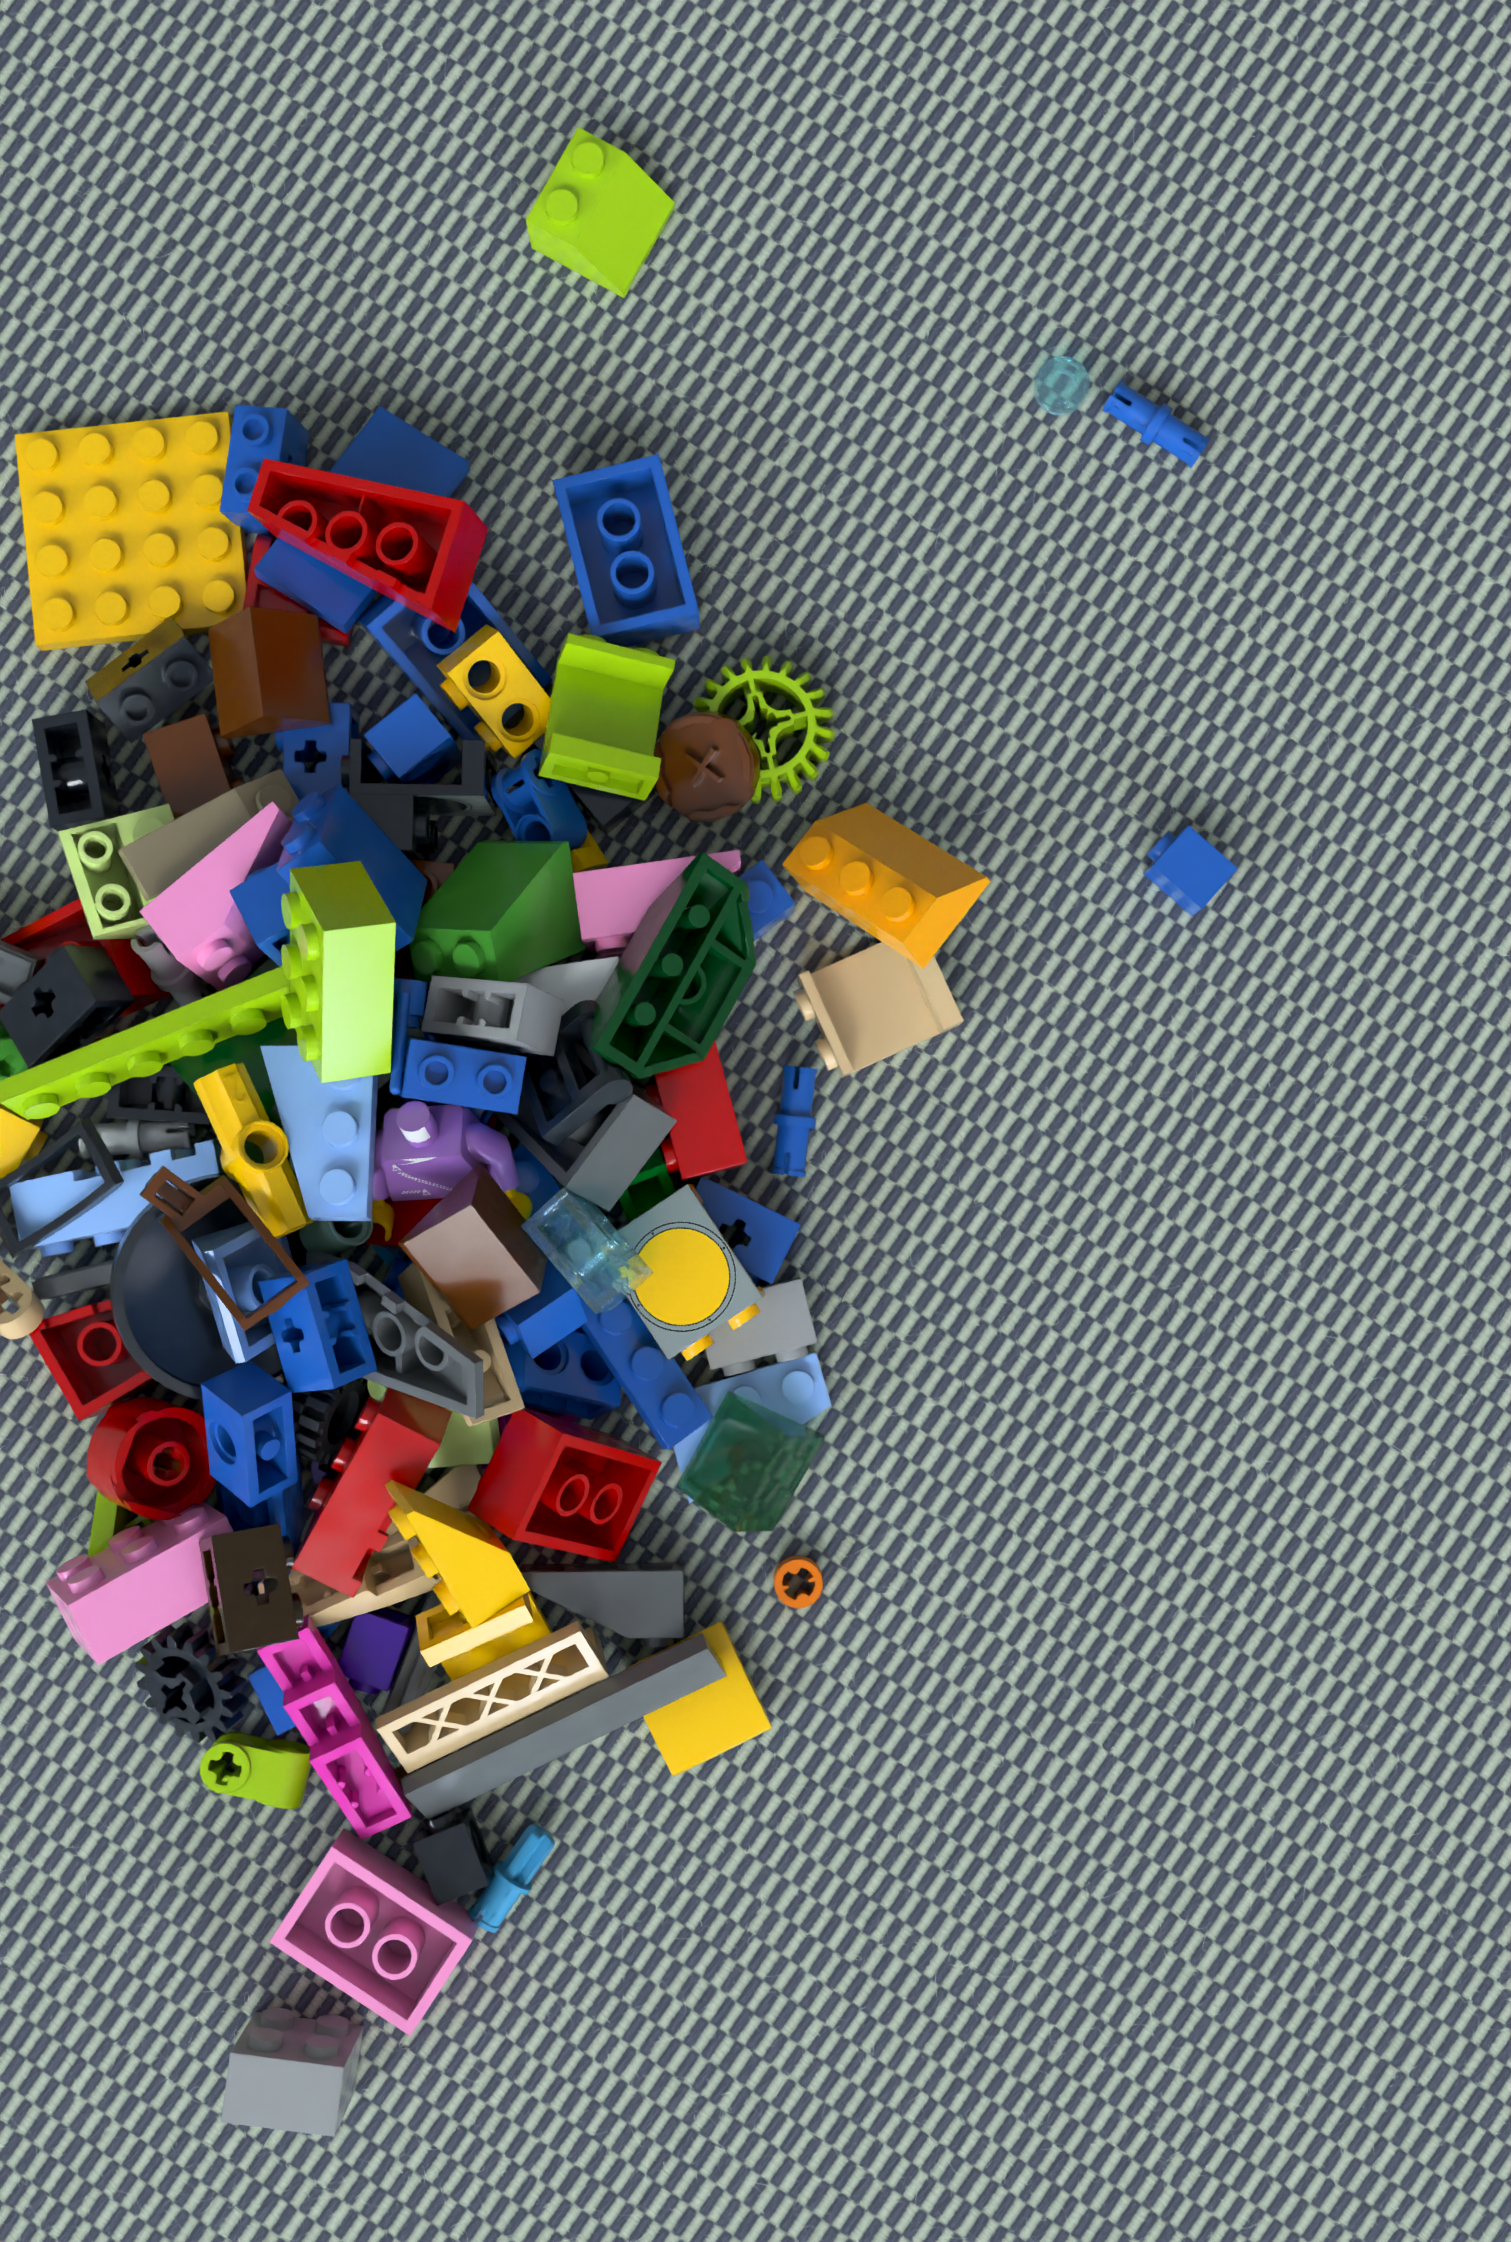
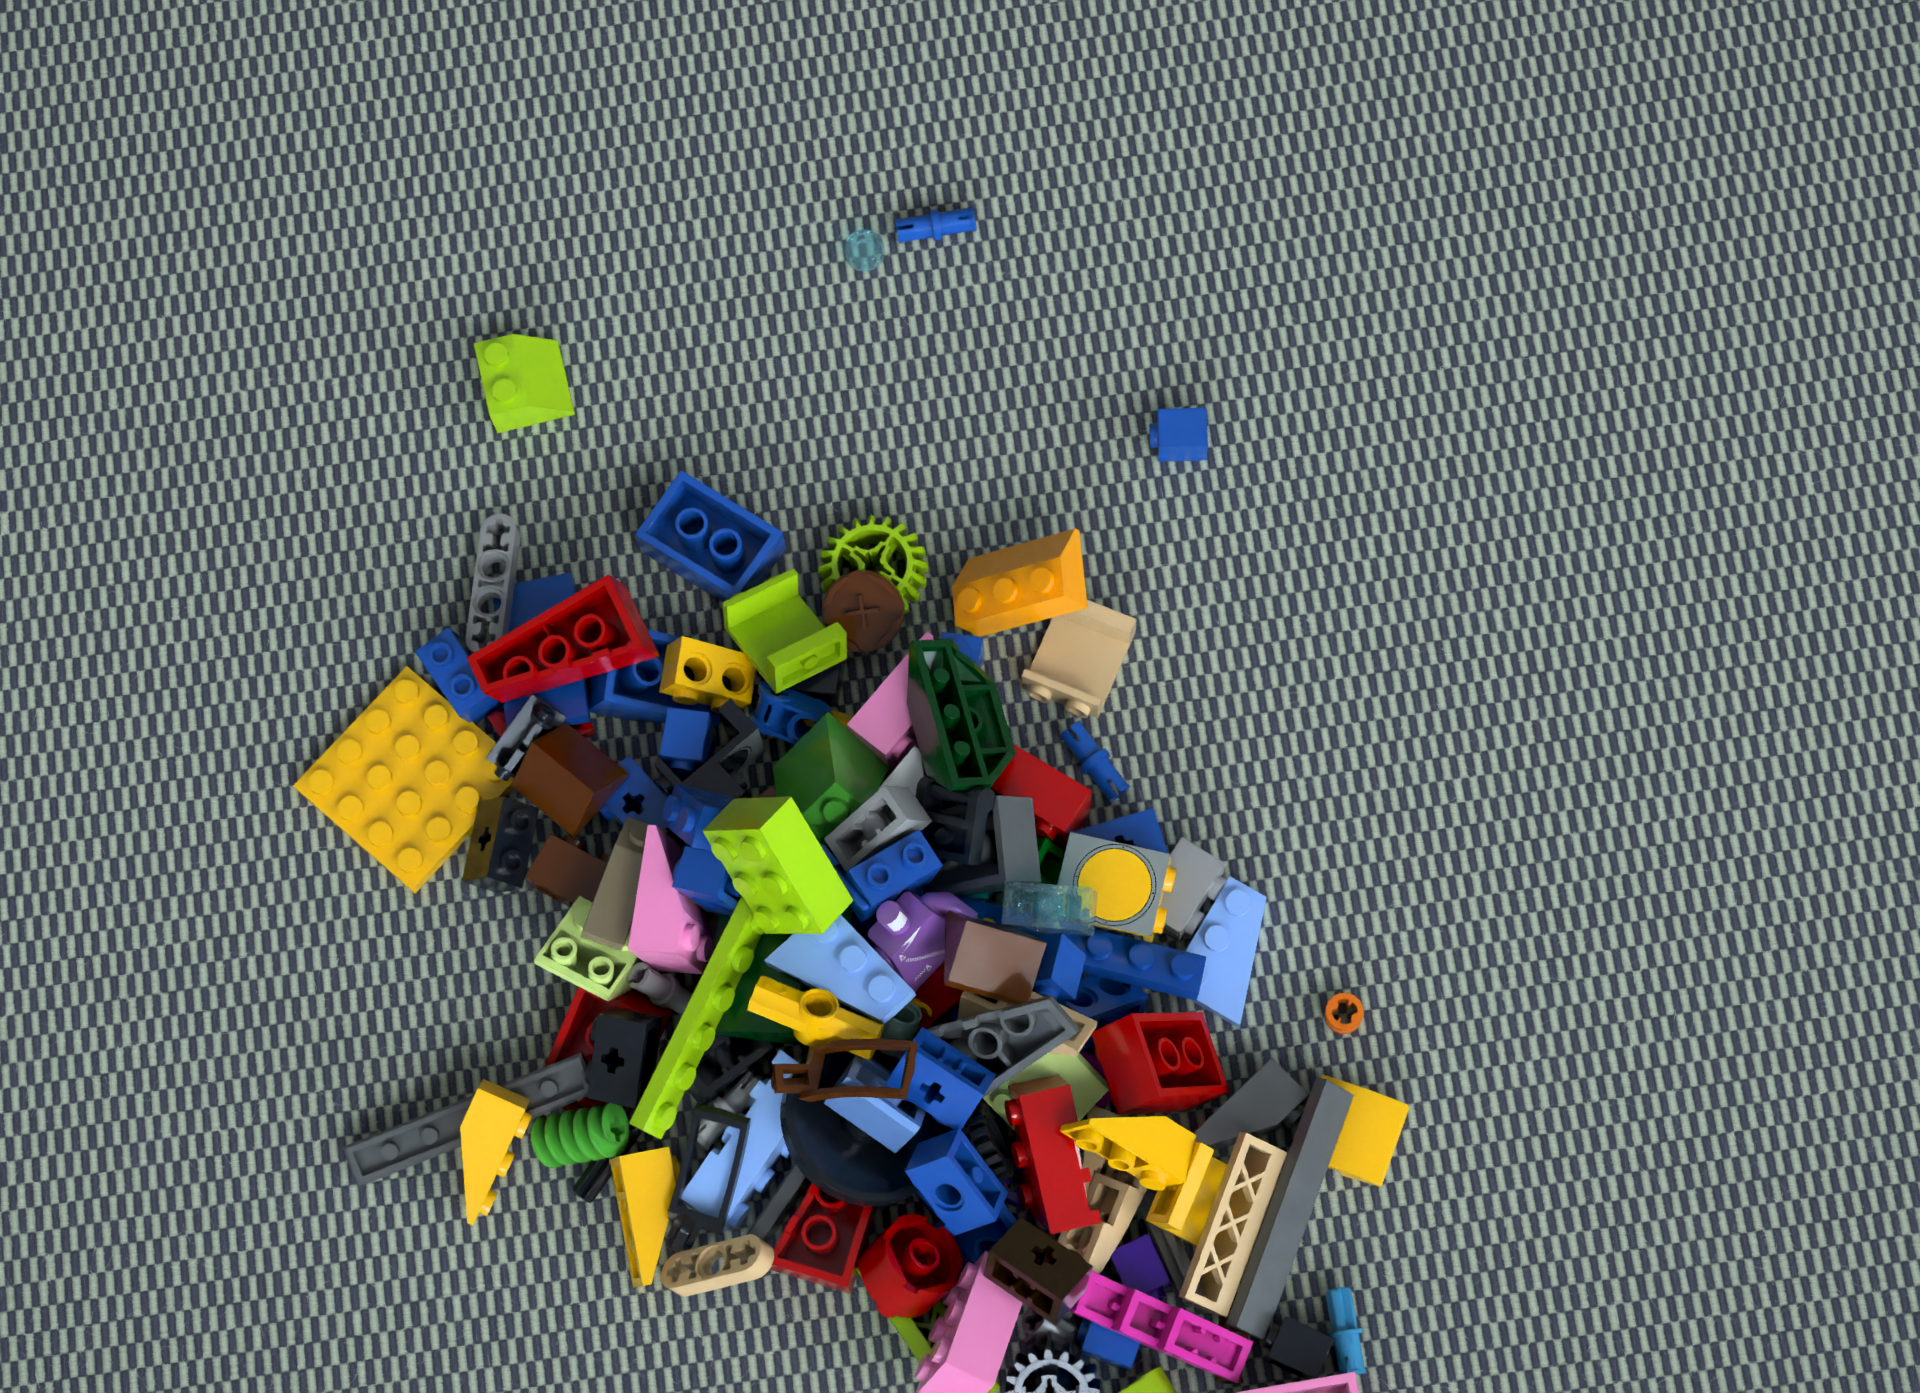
camera: 30 degrees left, 15 degrees down
(75, 769) = (503, 932): black brick -> none
(271, 586) = (530, 723): none -> black hinge
(369, 401) = (497, 587): none -> light grey beam
(749, 1464) = (1251, 967): clear green slope -> none

